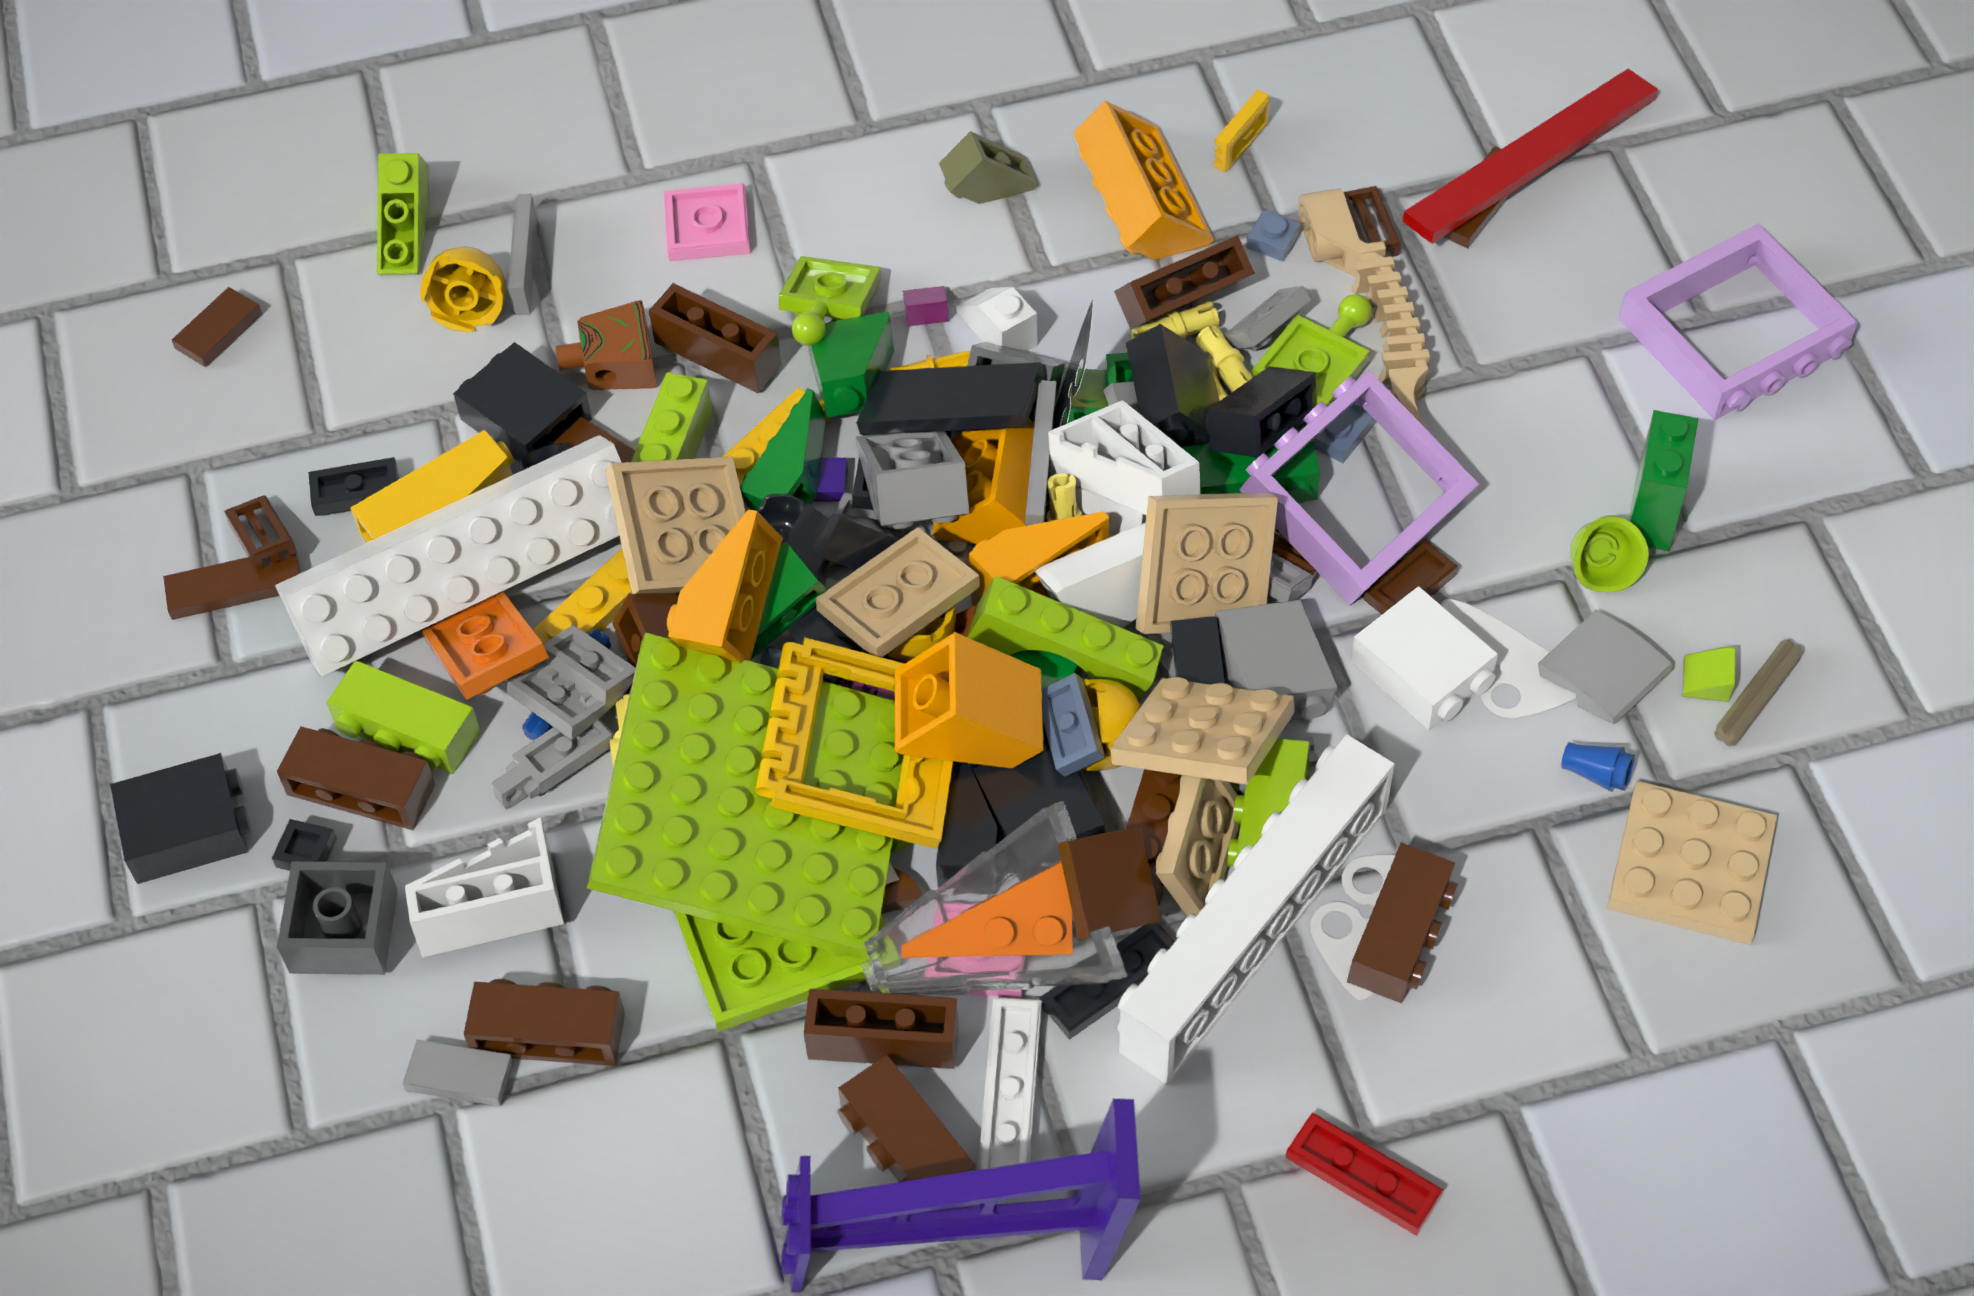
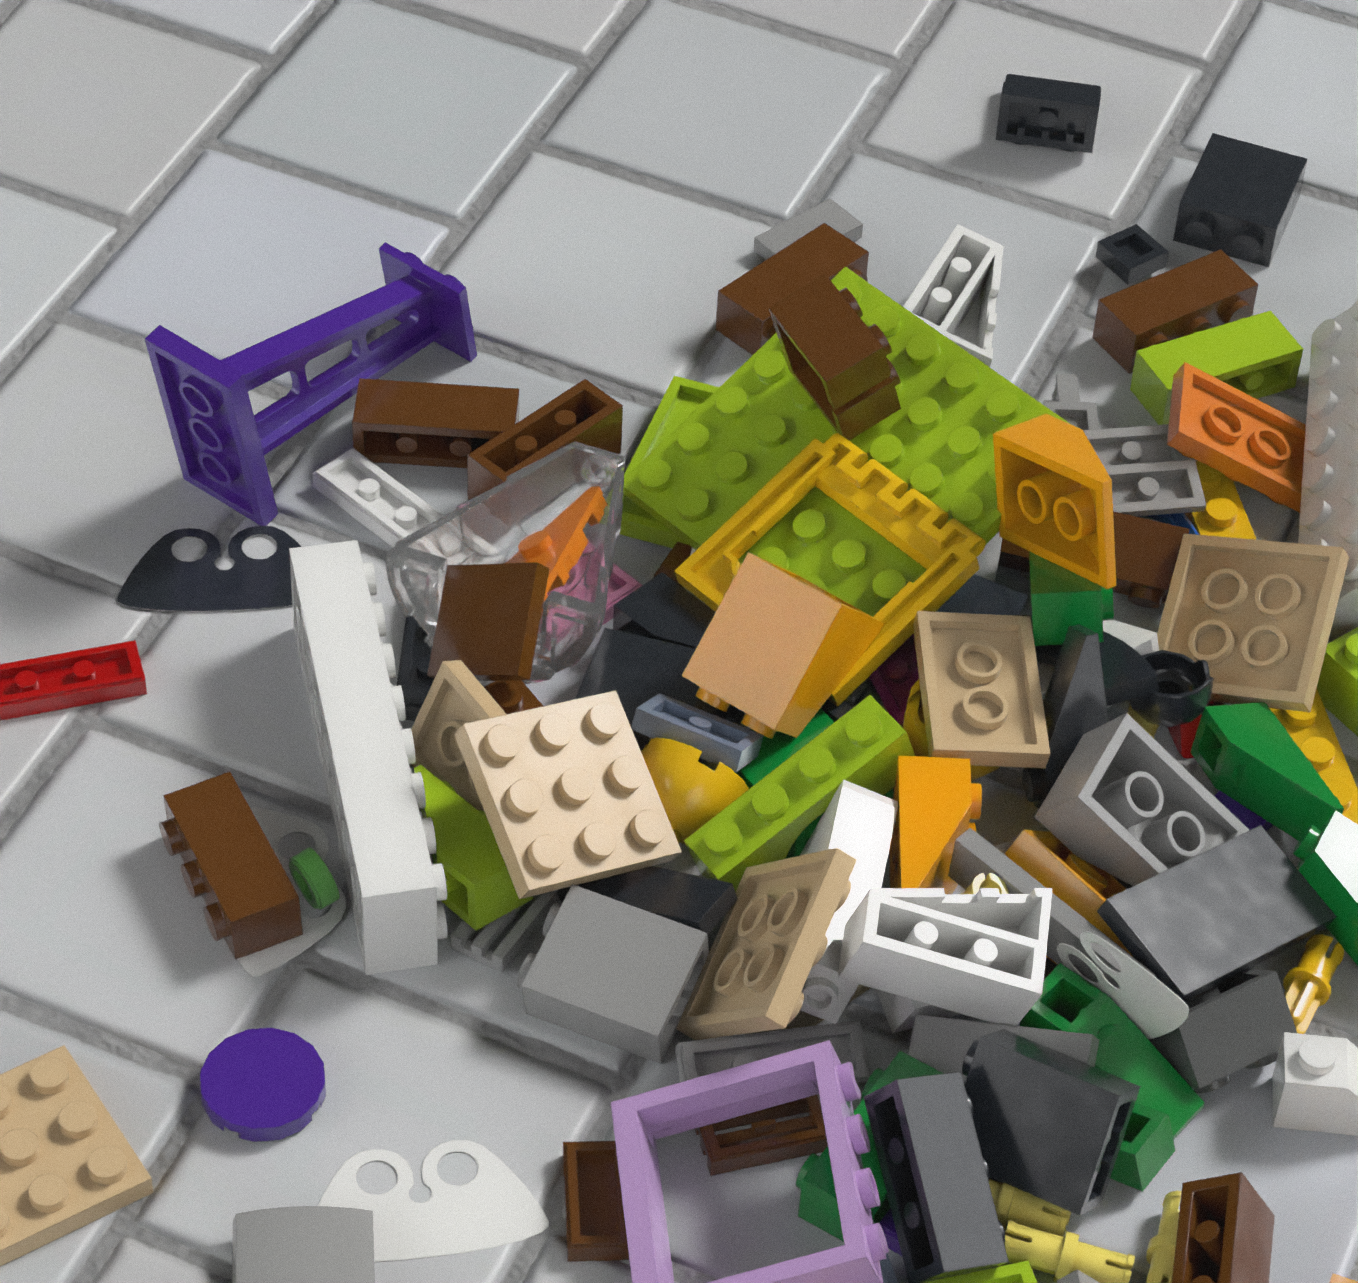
camera: 125 degrees right, 10 degrees down
(154, 1014) = (1048, 113): none -> black bracket
(337, 918) = (1033, 215): dark grey brick -> none
(716, 790) = (837, 356): none -> reddish brown piece
(1192, 1174) = (199, 586): none -> black piece
(1365, 871) = (313, 879): none -> bright green tile
(1424, 658) = (483, 1114): white brick -> none
(1517, 788) = (262, 1084): none -> dark purple tile
(1602, 765) = (202, 1162): blue cone -> none

